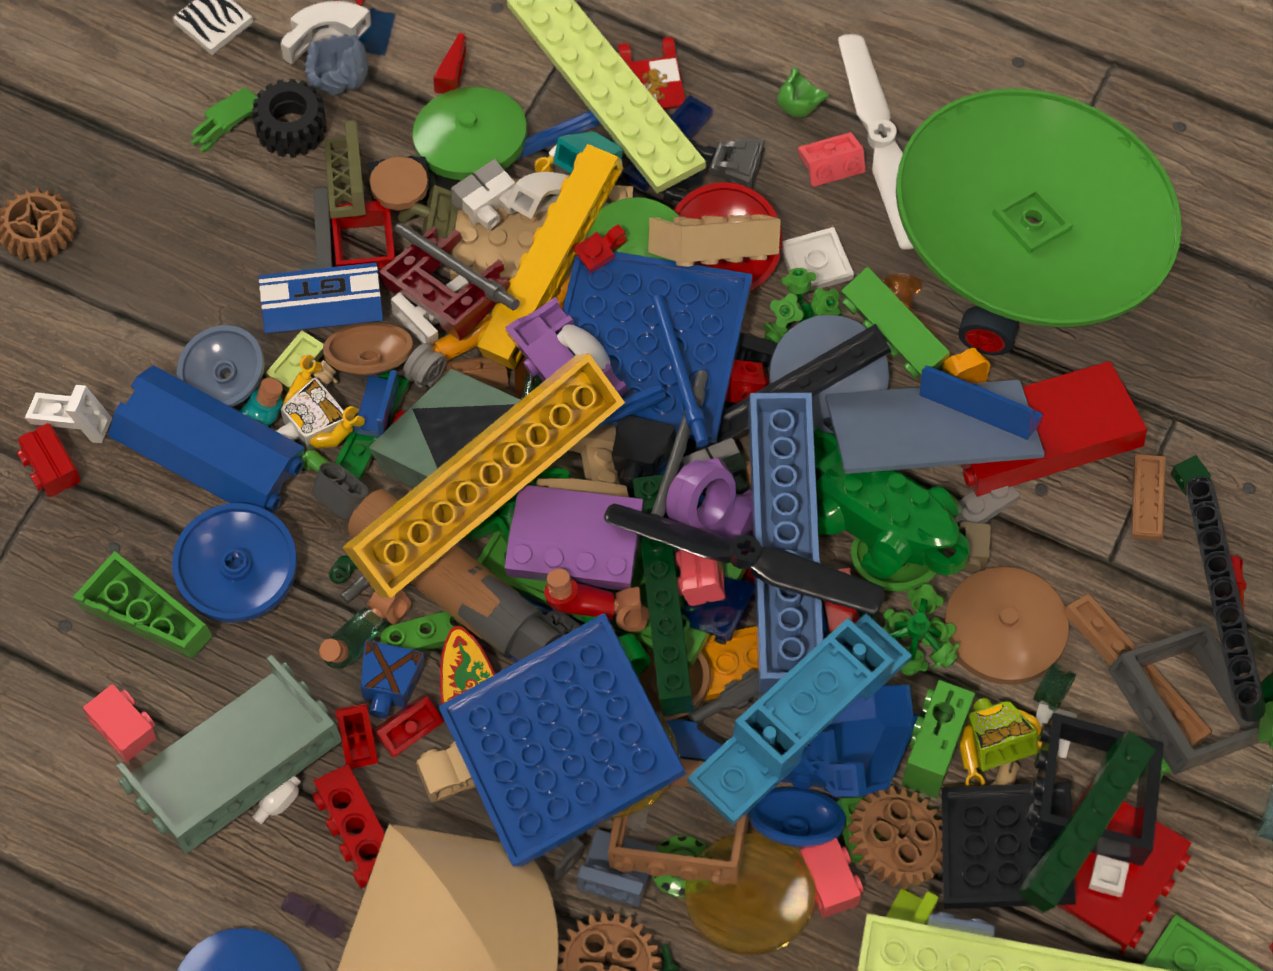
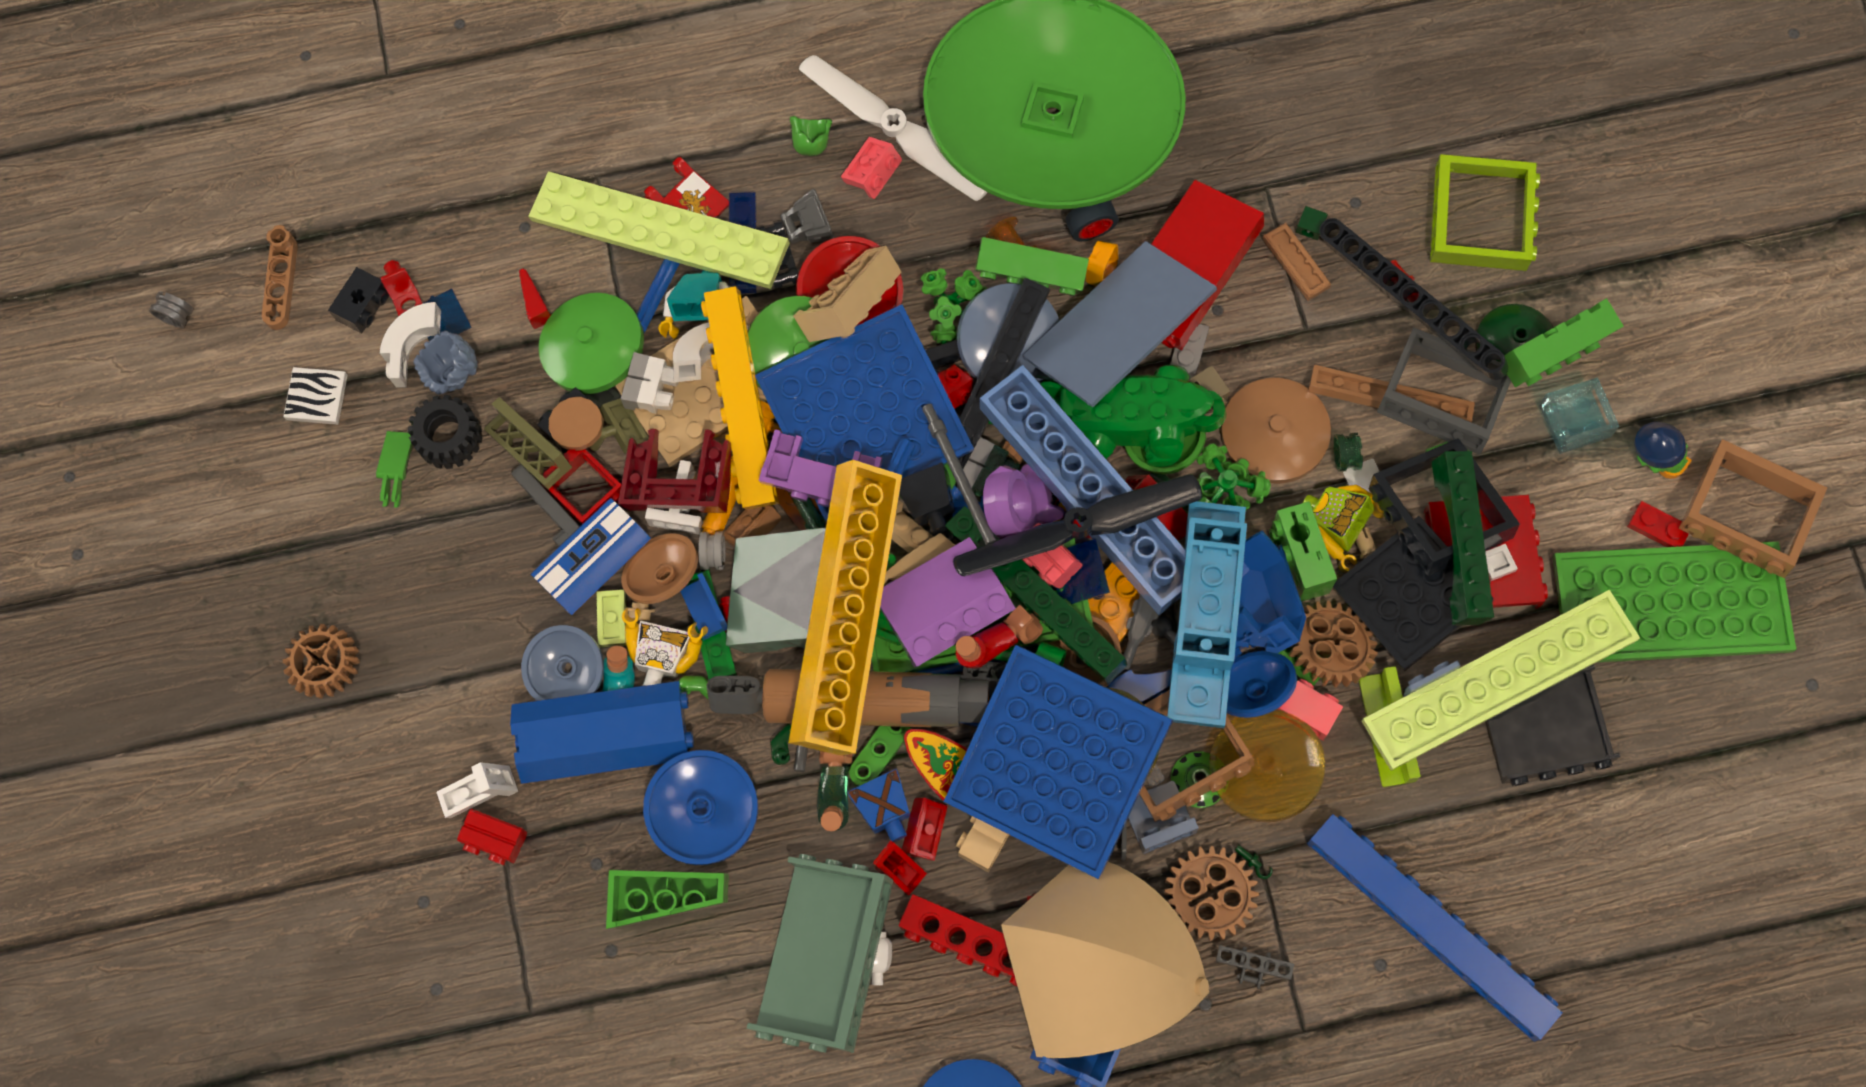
camera: 30 degrees left, 10 degrees up
(120, 722) = (718, 992): coral brick -> none
(312, 915) = (977, 1022): axle -> none
(492, 290) = (726, 458): dark grey bar -> none
(582, 343) = (827, 451): white dish -> none
(597, 251) = (773, 369): red plate -> none
(693, 415) = (953, 445): blue bar -> none
(821, 254) = (923, 251): white tile -> none
(979, 403) = (1138, 281): blue panel -> none

